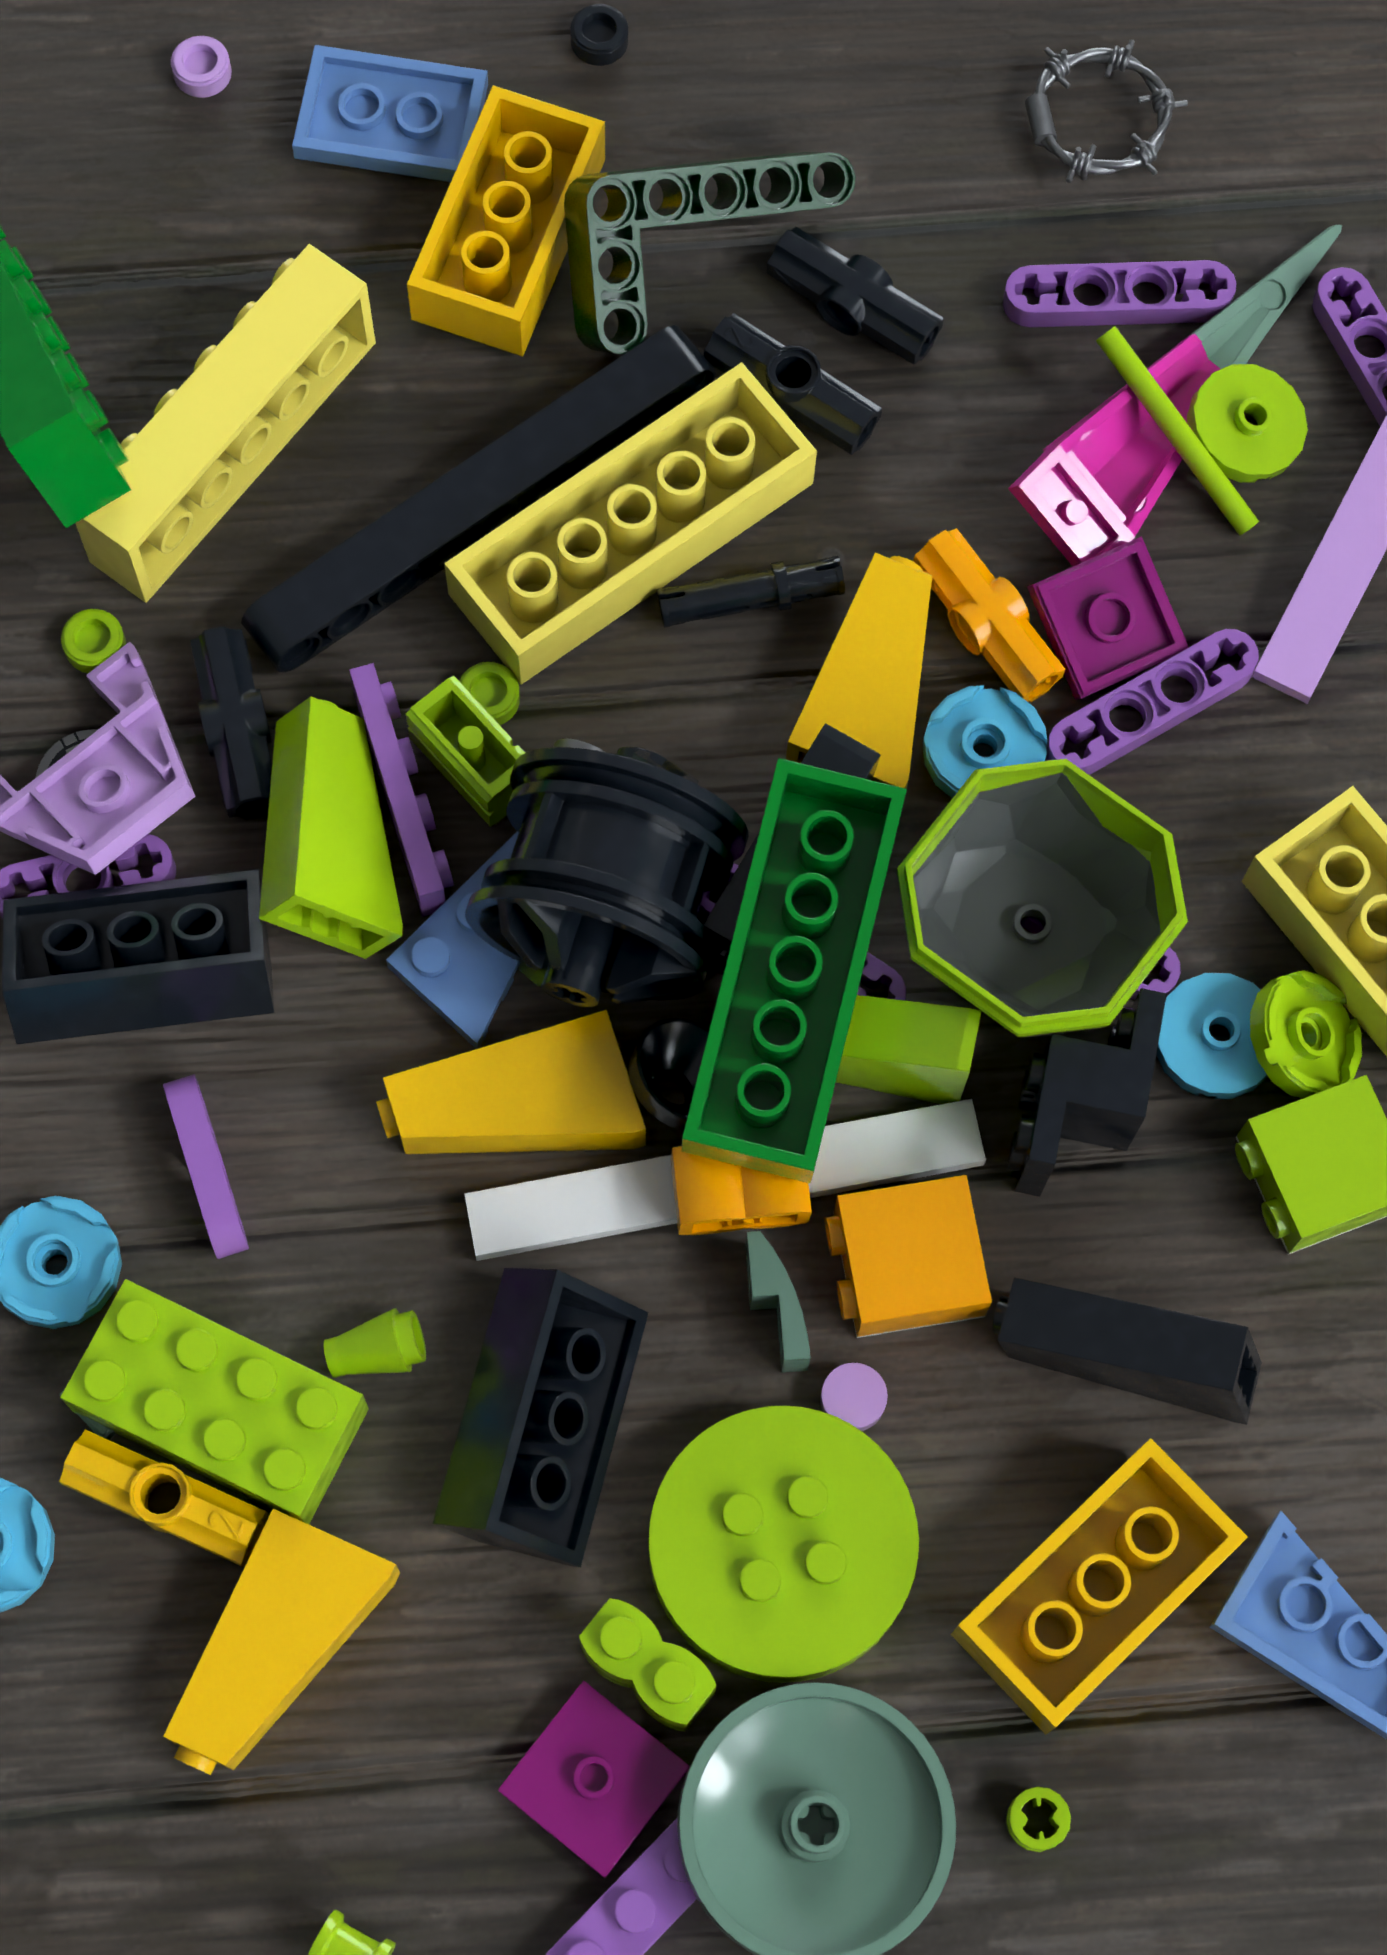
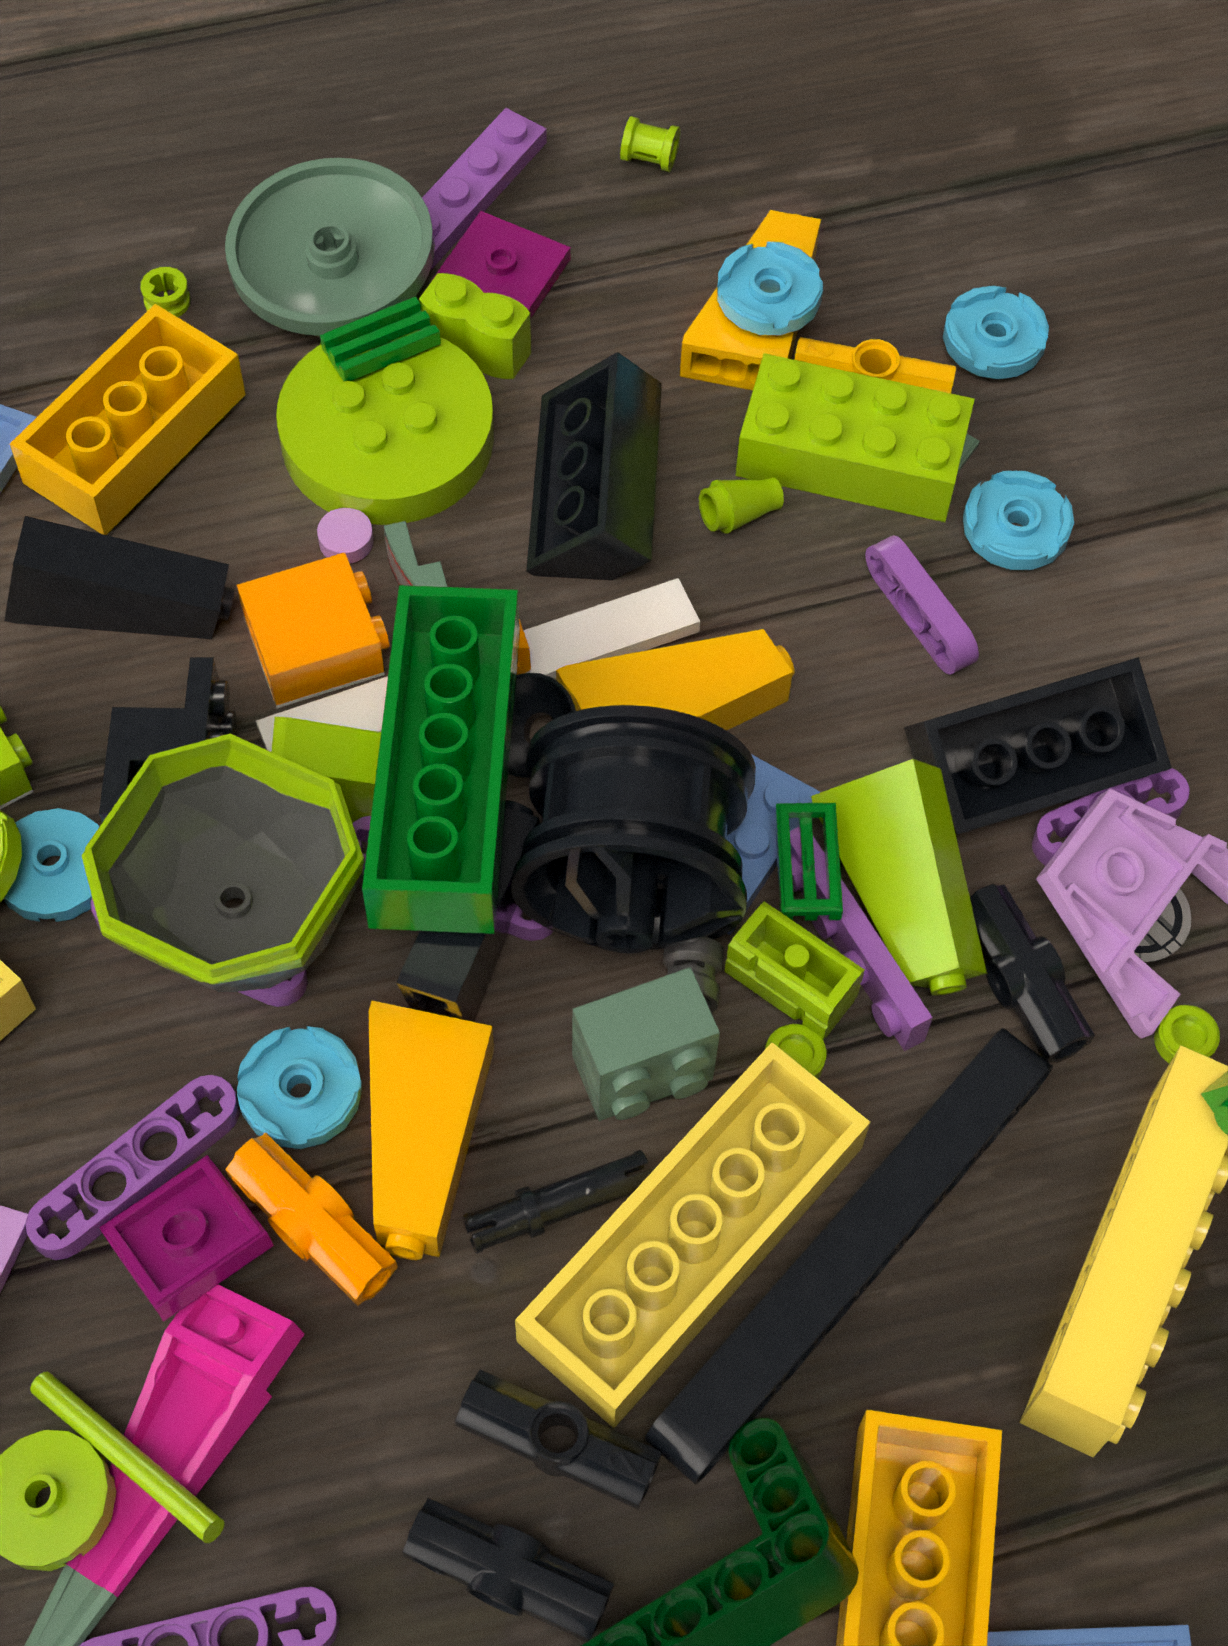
camera: 170 degrees right, 10 degrees down
(240, 1581) = (769, 288): none -> medium azure plate
(418, 894) = (809, 906): none -> green tile
(643, 689) = (645, 1045): none -> sand green brick
(830, 1618) = (376, 333): none -> green tile

